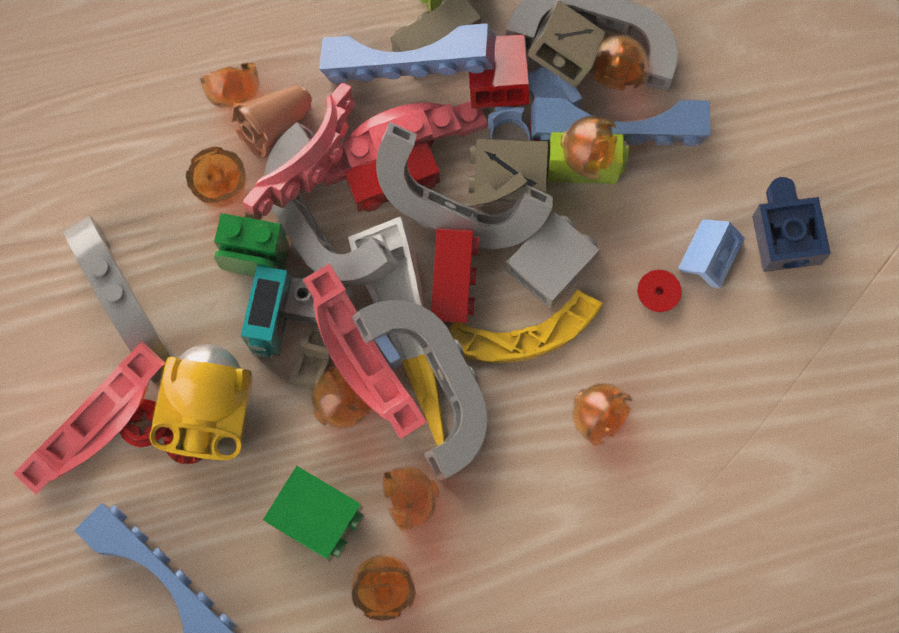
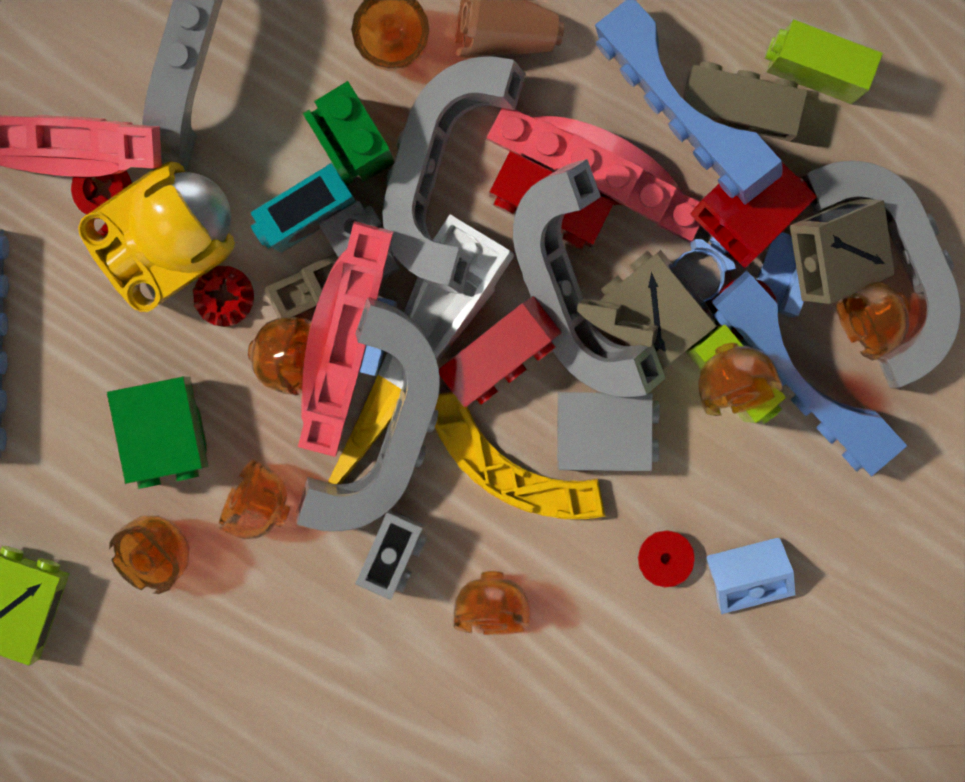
camera: 45 degrees right, 15 degrees up
(268, 423) = (234, 310): none -> red gear
(309, 165) = (484, 116): coral piece -> none
(514, 442) = (390, 553): none -> light grey brick
(790, 229) = (839, 633): dark blue brick -> none

